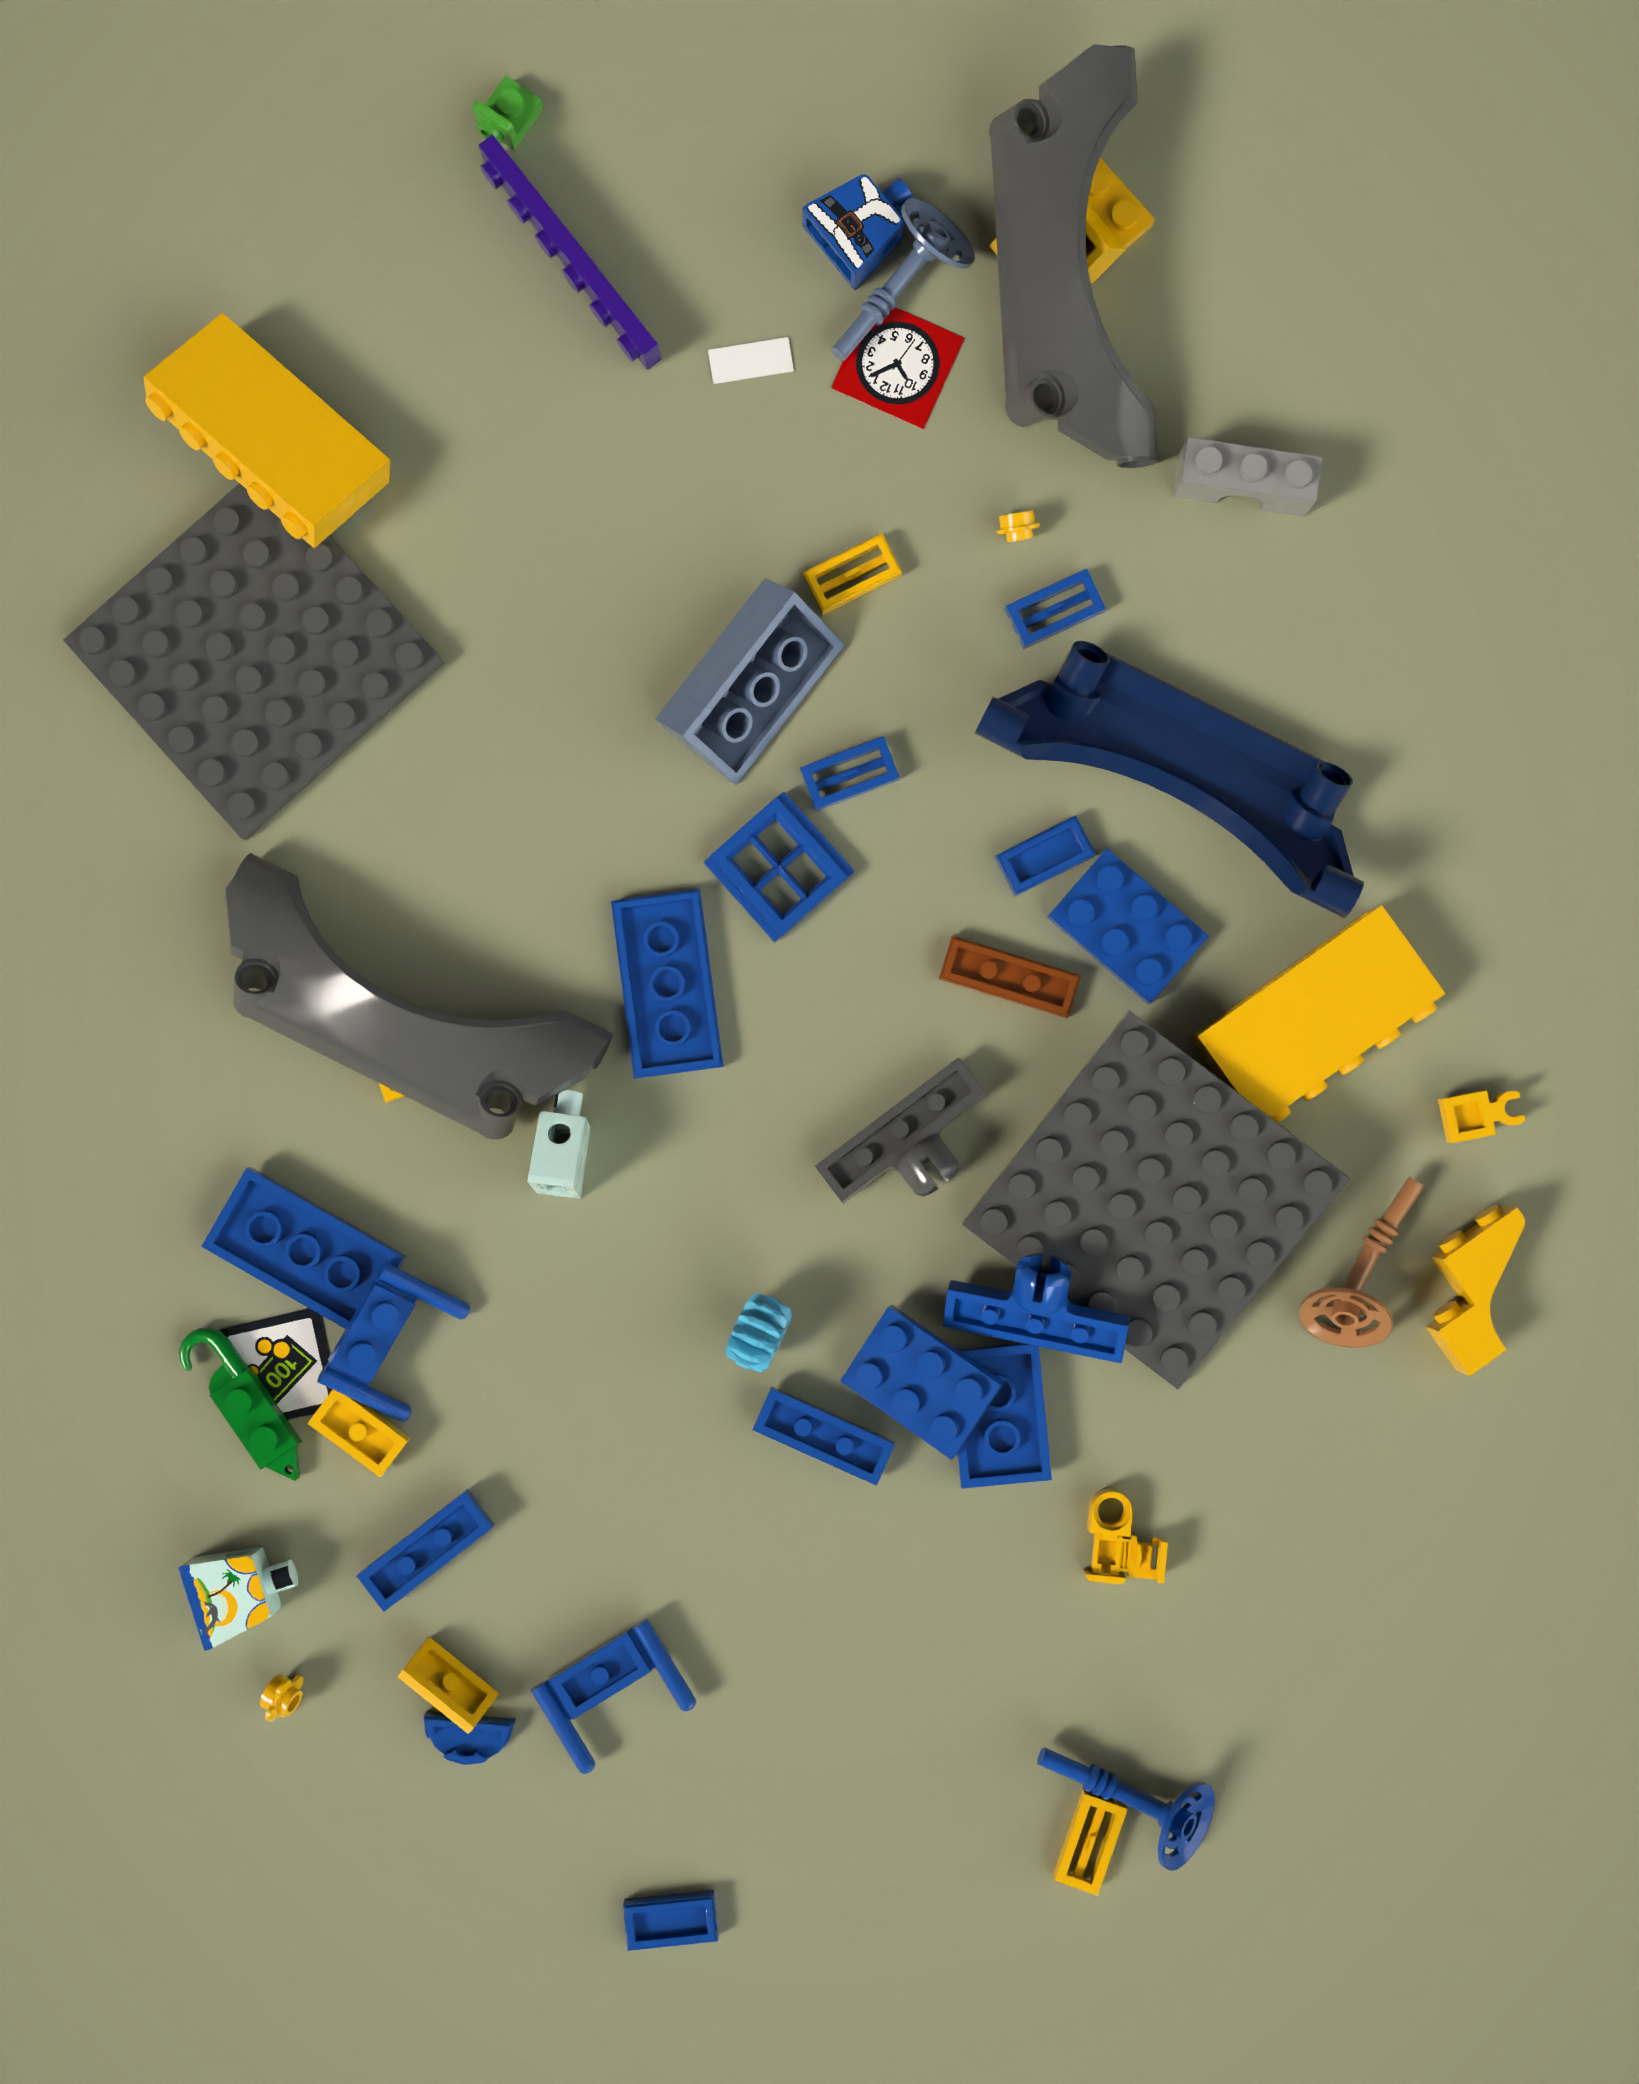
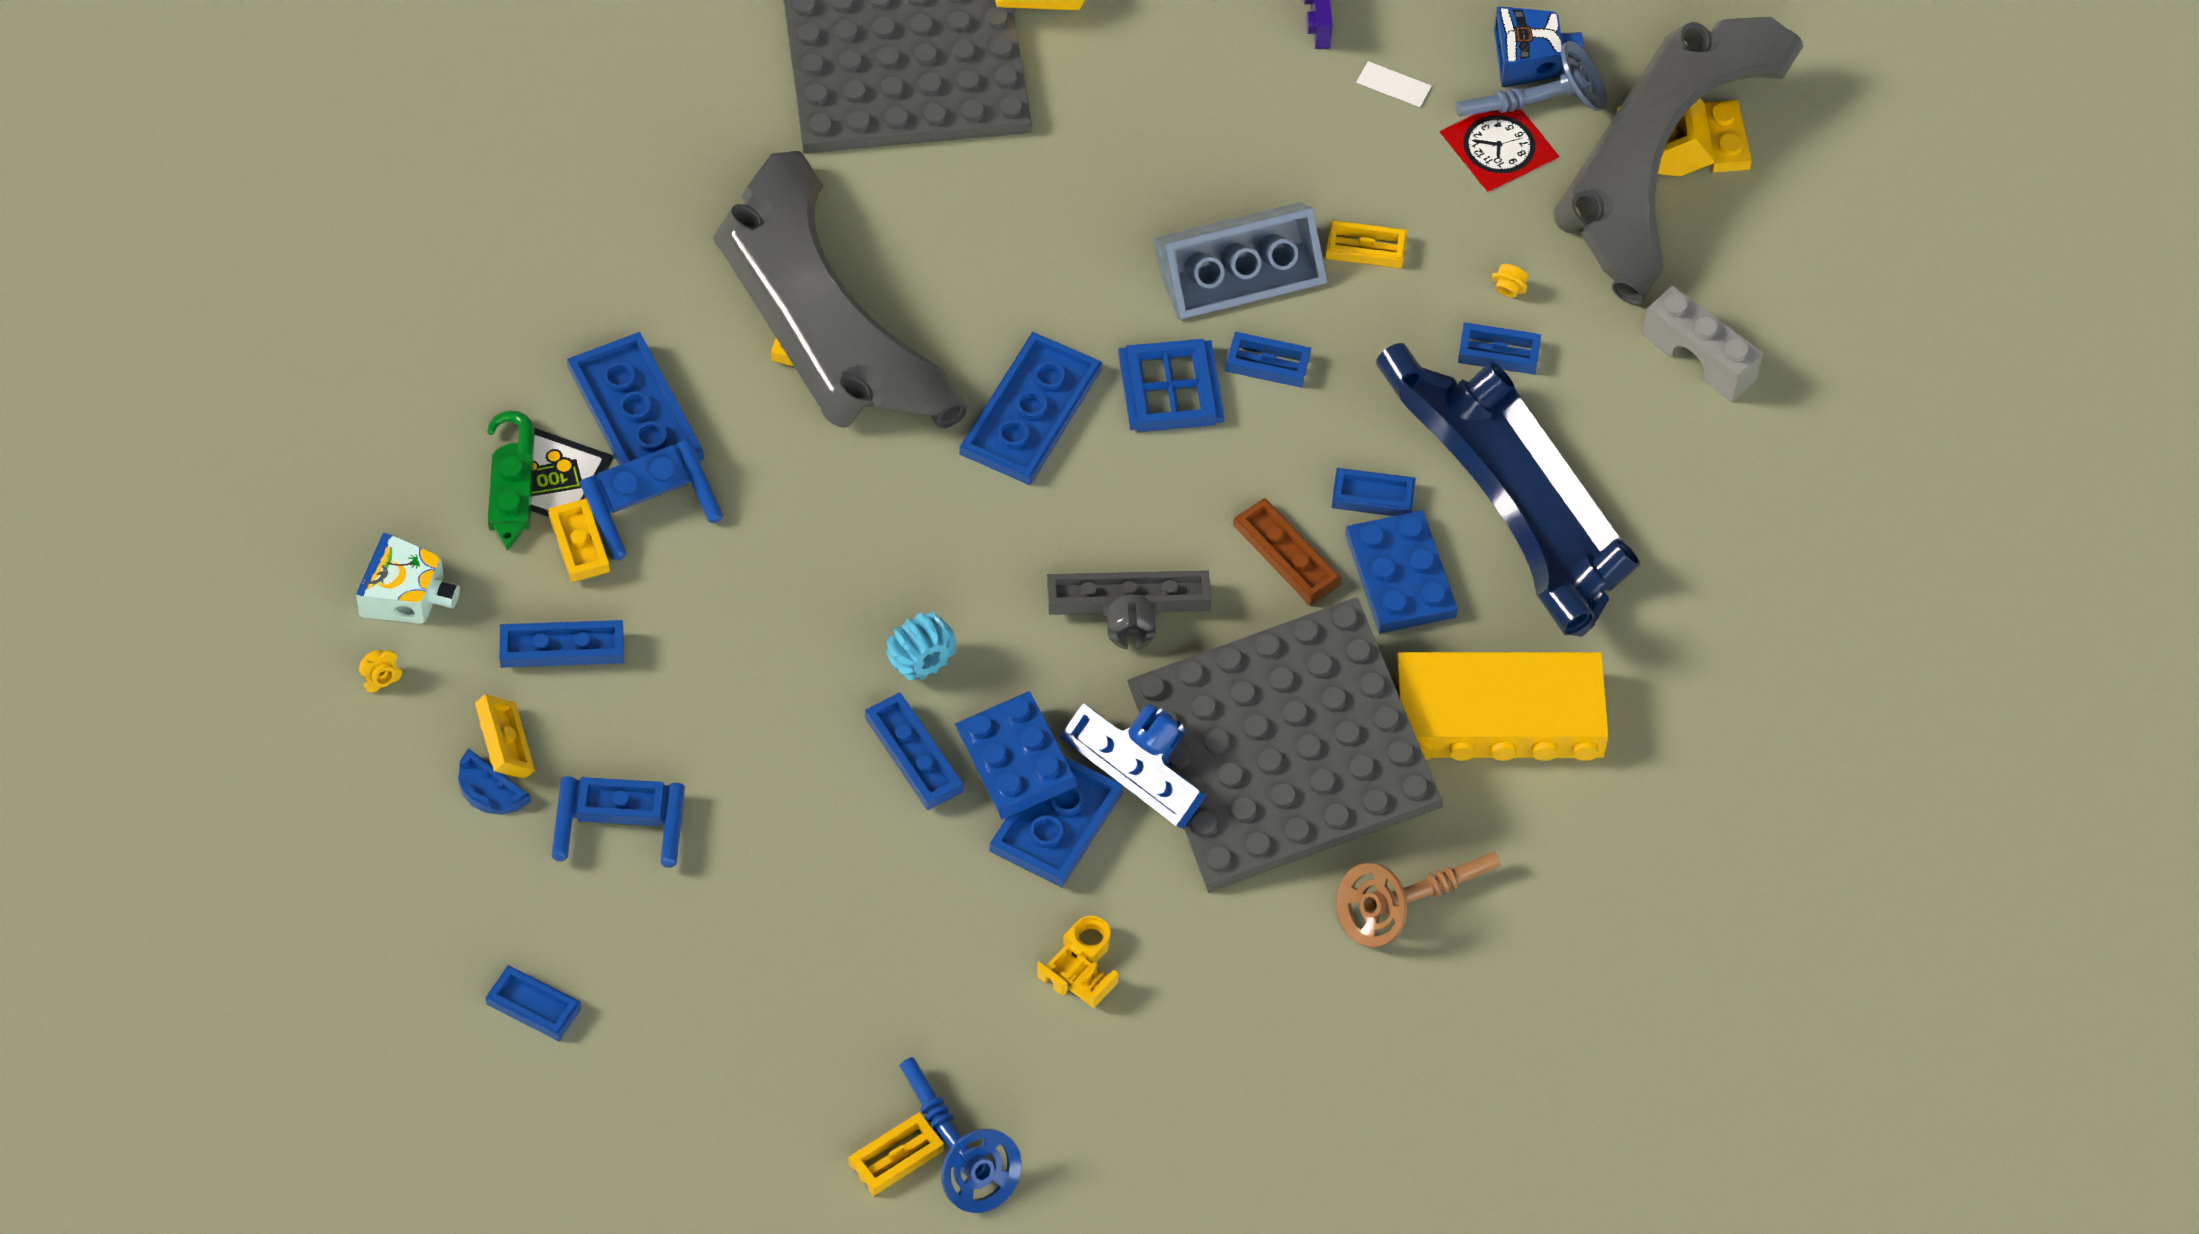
camera: 35 degrees right, 30 degrees down
(560, 1167) = (869, 451): light aqua torso -> none
(1473, 1116) = (1575, 842): yellow plate -> none
(1473, 1267) = (1499, 940): yellow arch -> none

